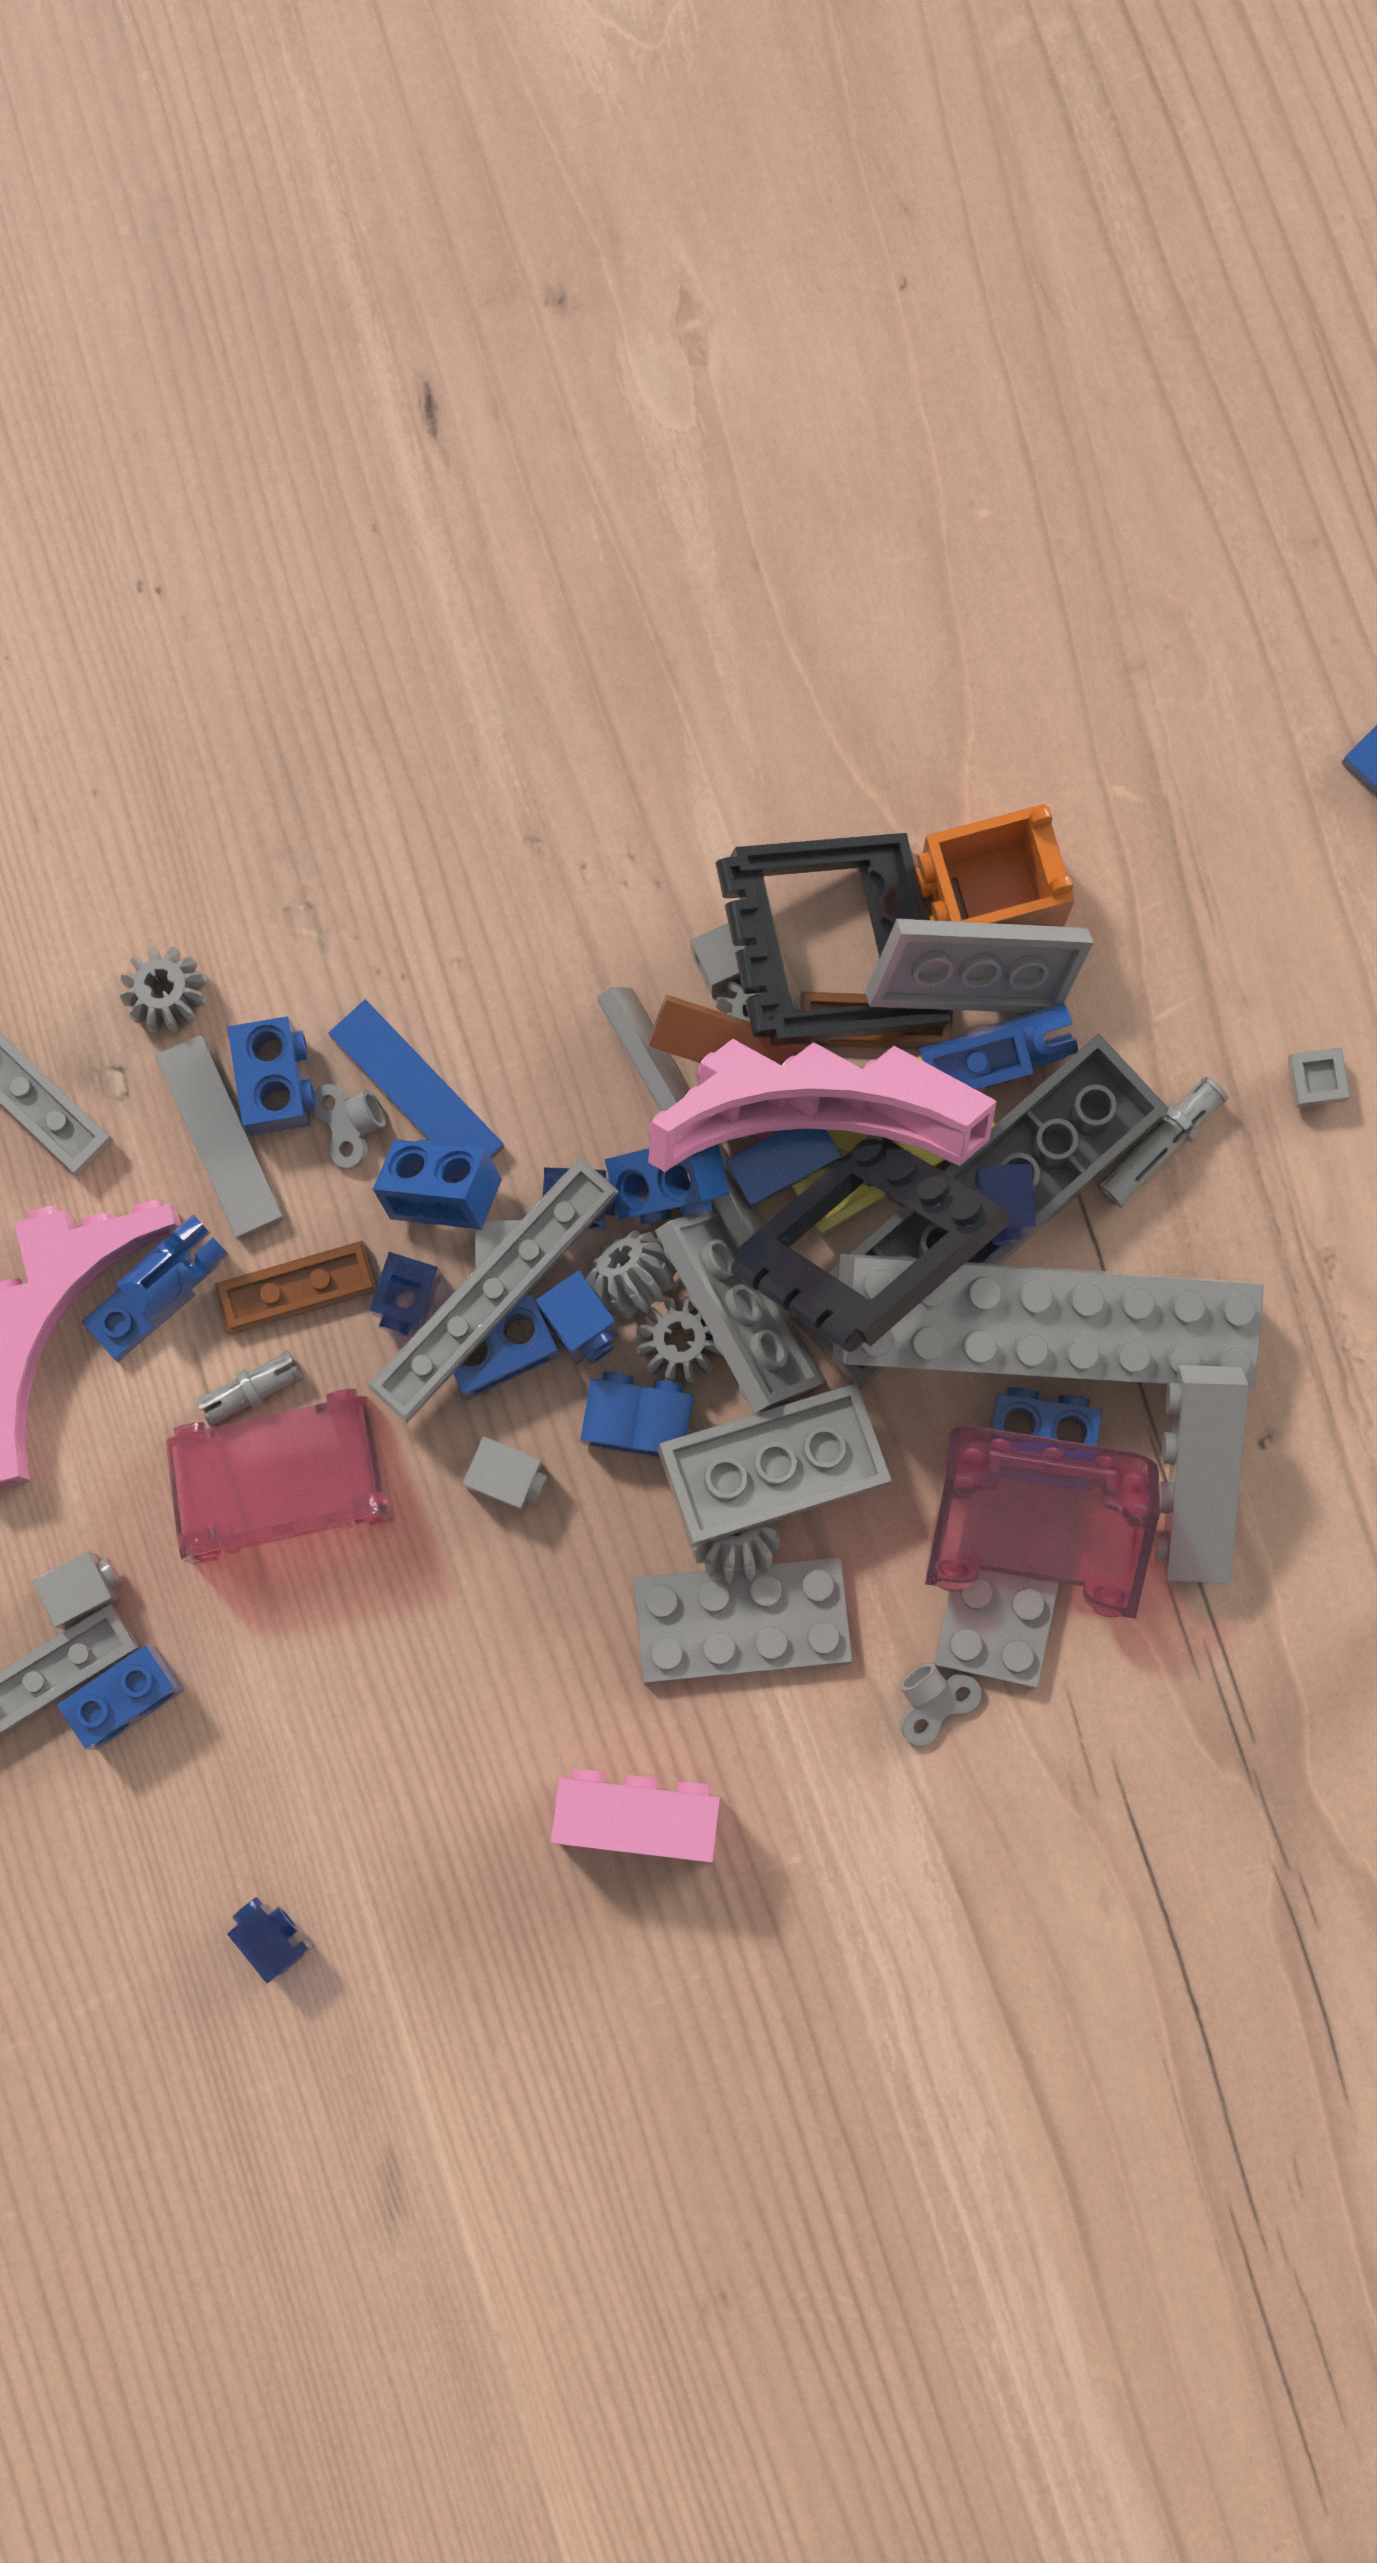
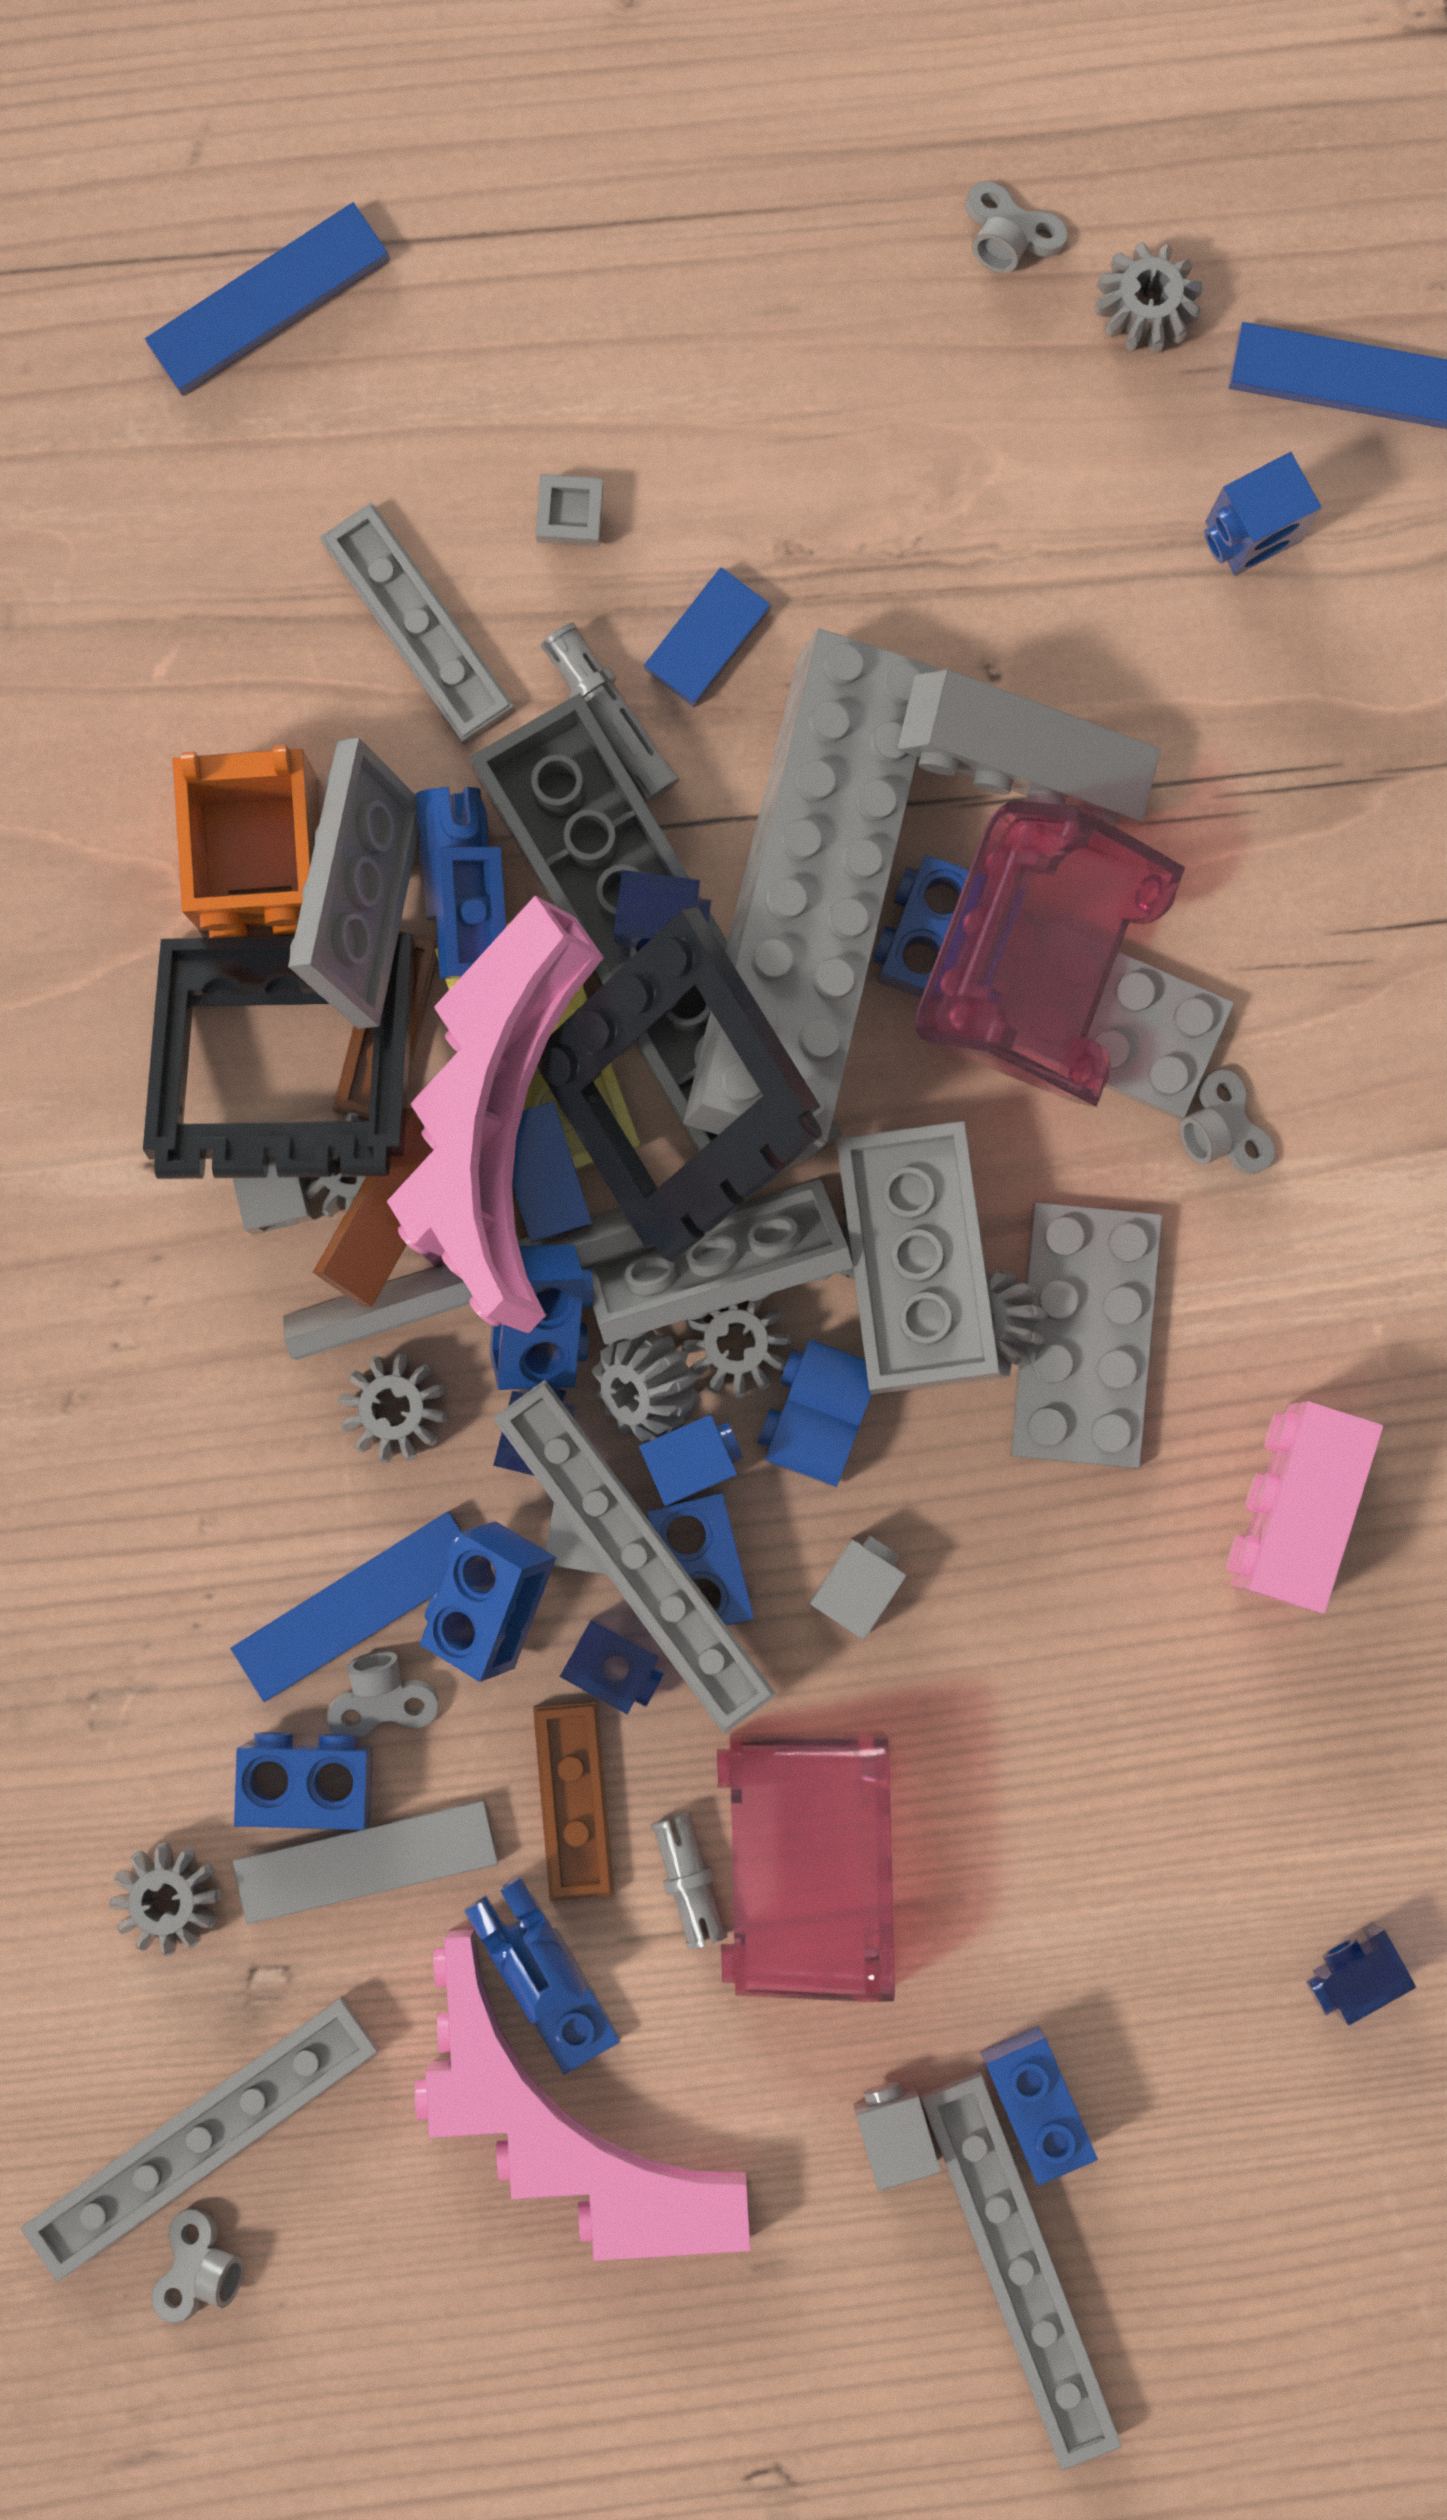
camera: 85 degrees left, 5 degrees up
(555, 1084) = (385, 1427): none -> light grey gear
(1200, 979) = (417, 623): none -> light grey tile
(1242, 1207) = (707, 637): none -> blue tile

